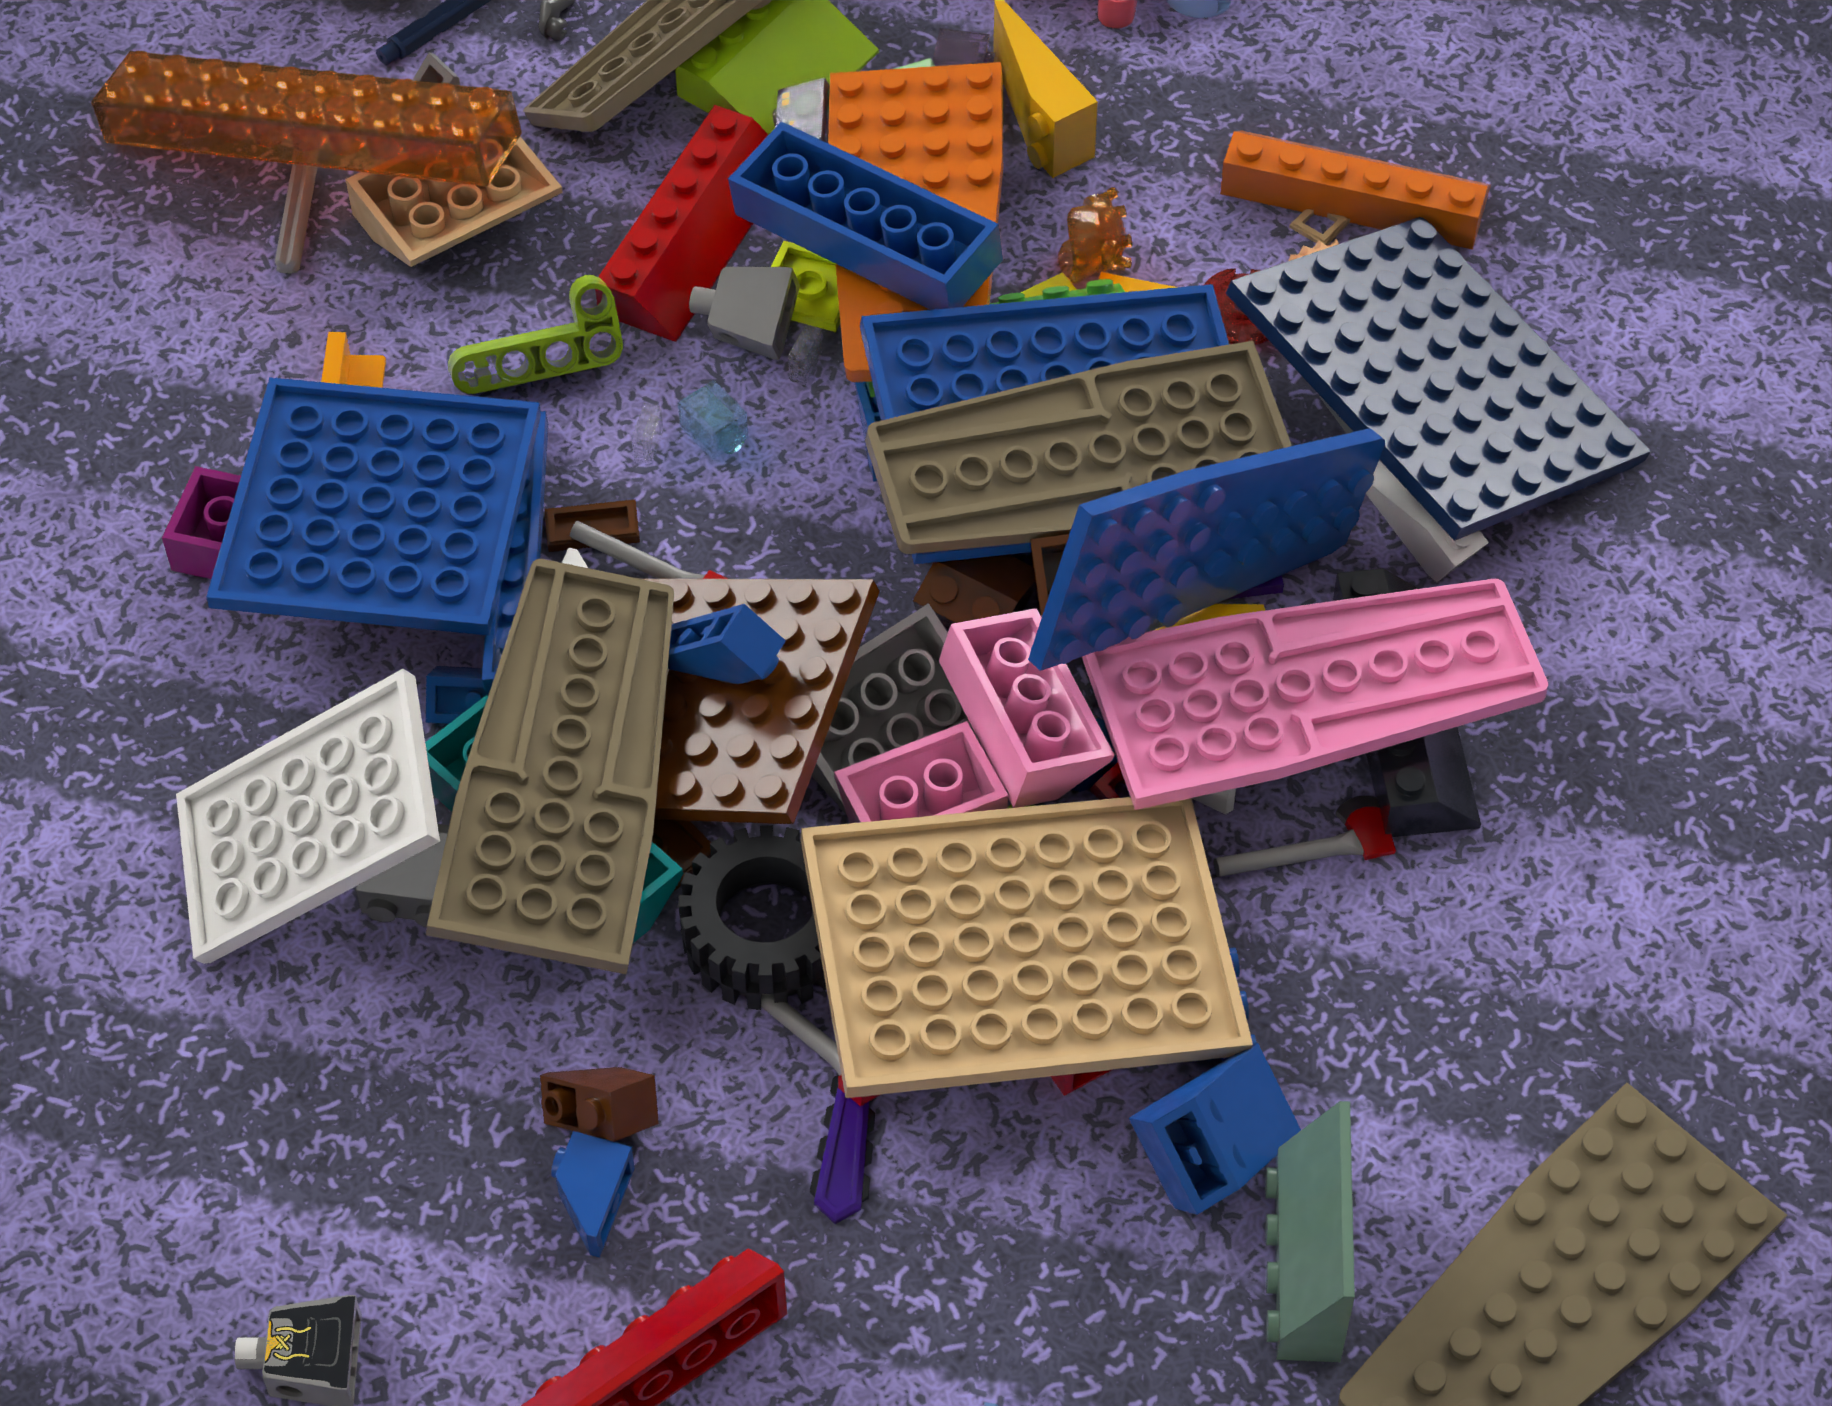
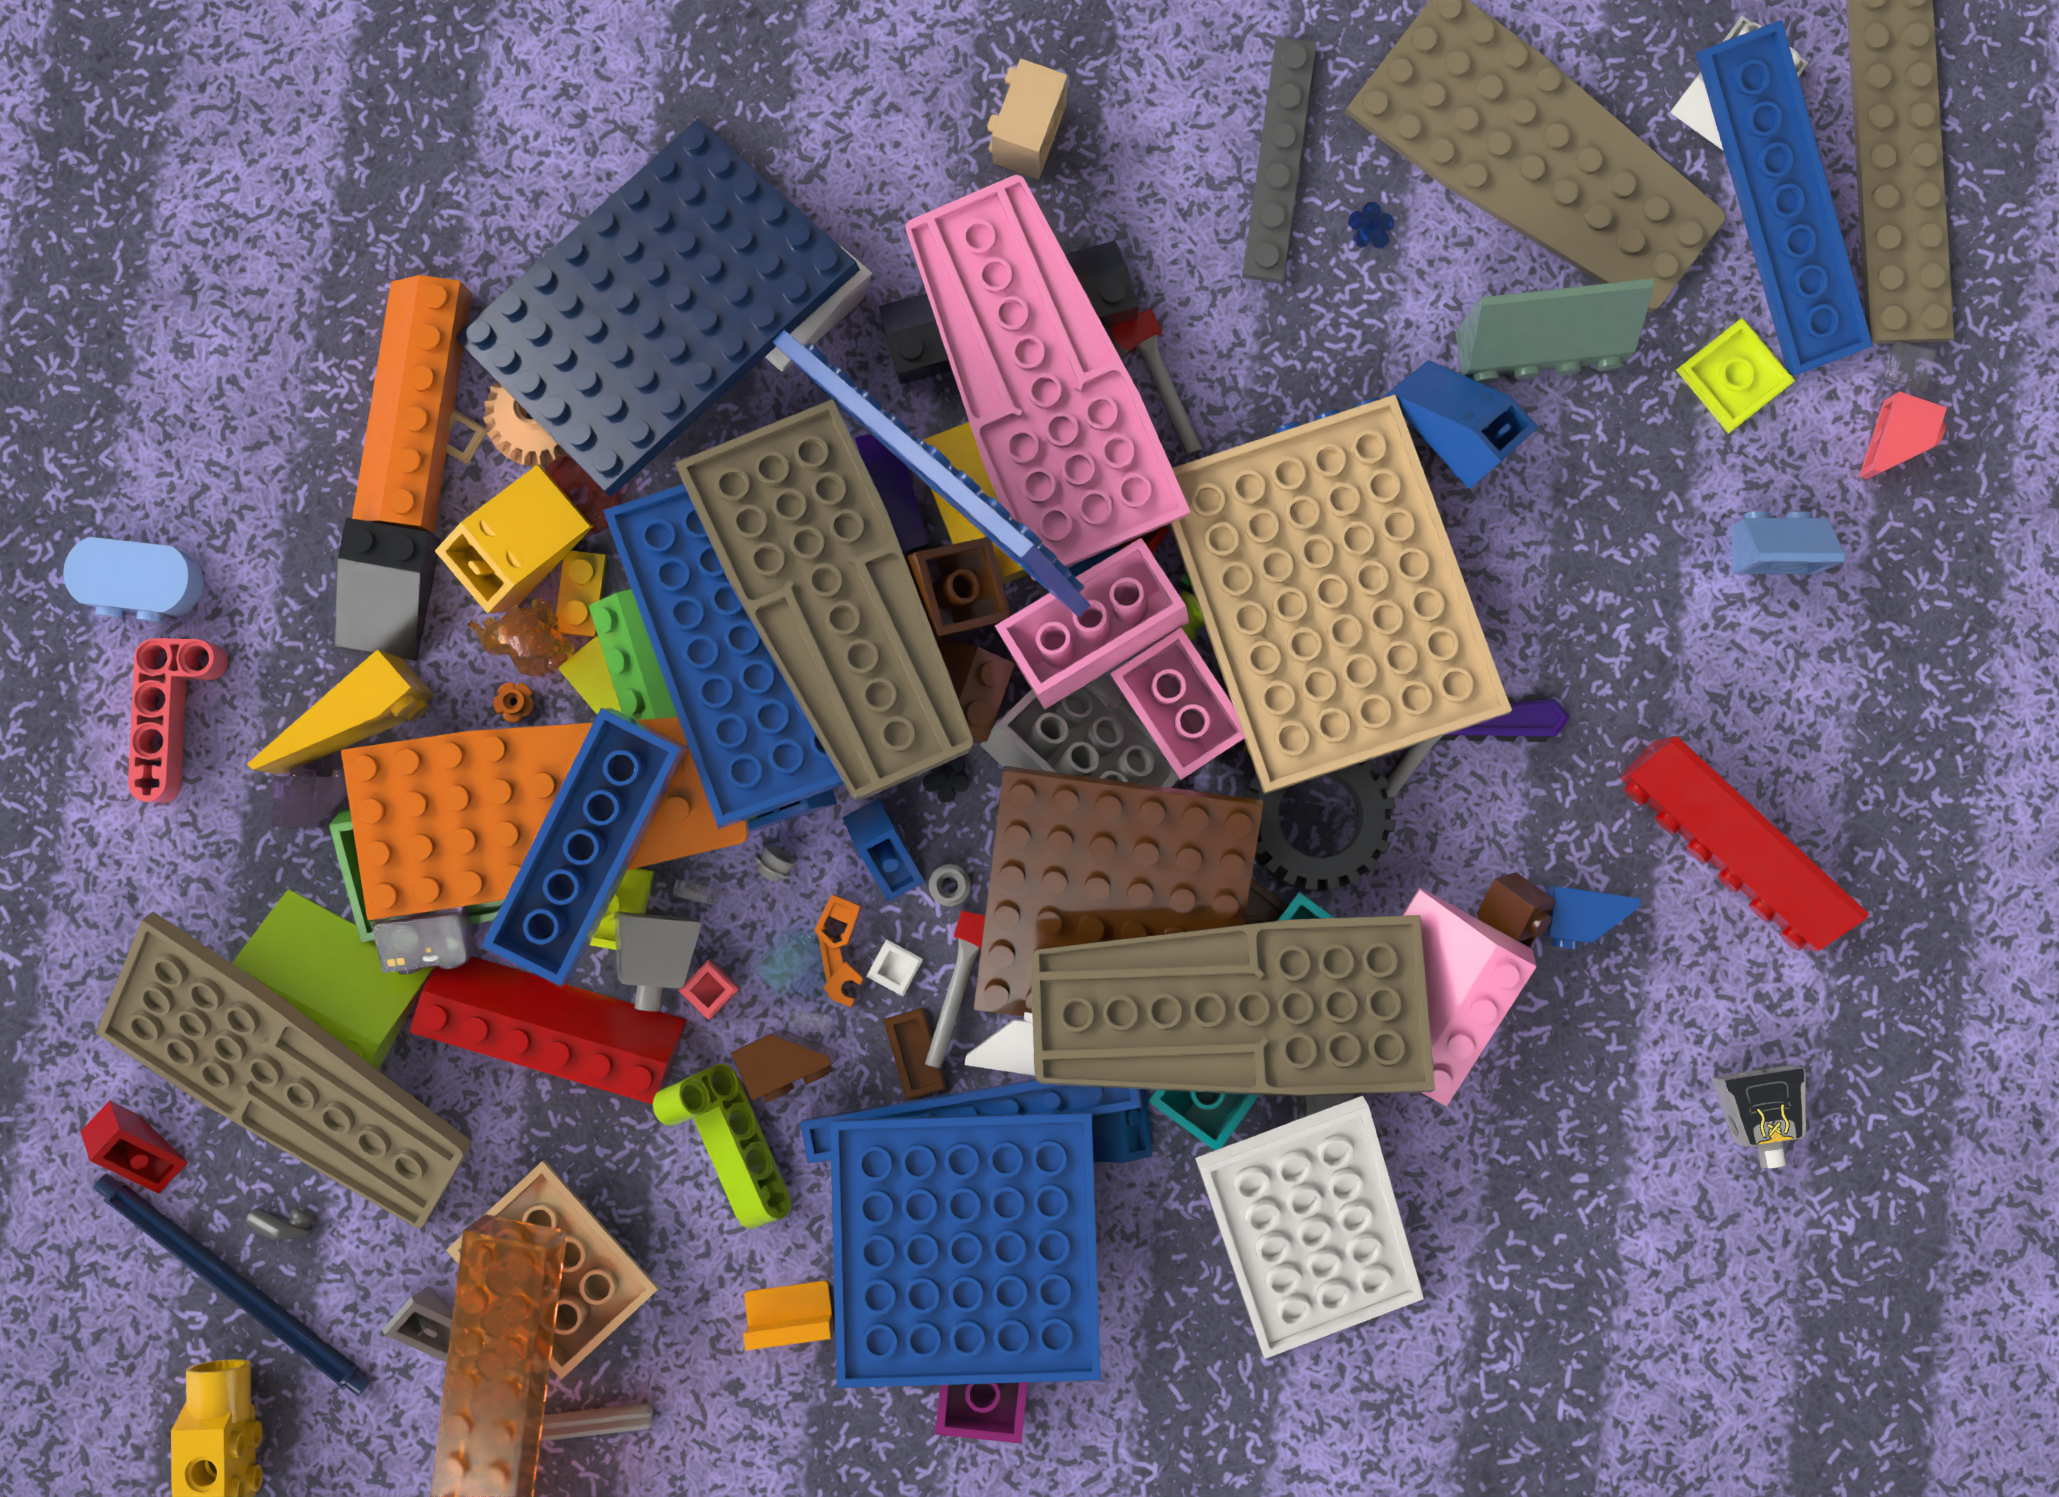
camera: 95 degrees left, 30 degrees up
(528, 1011) = (1470, 986): none -> bright pink slope
(611, 391) = (780, 1059): none -> reddish brown slope
(687, 519) = (894, 967): none -> white tile
(697, 465) = (835, 968): none -> orange piece
(702, 357) = (710, 989): none -> coral slope
(725, 646) = (1093, 893): blue slope -> none
(765, 564) = (940, 895): none -> light grey plate
(816, 514) = (883, 849): none -> blue slope
(818, 422) = (772, 866): none -> light grey plate
(891, 590) = (947, 780): none -> black plant
(1033, 242) = (523, 707): none -> orange plate
(1169, 143) = (383, 587): none -> slope
(1195, 233) = (514, 540): none -> yellow slope
(1477, 1095) = (1370, 226): none -> clear blue plant
(1569, 1006) = (1279, 160): none -> dark grey plate
(1624, 735) = (1028, 118): none -> tan container

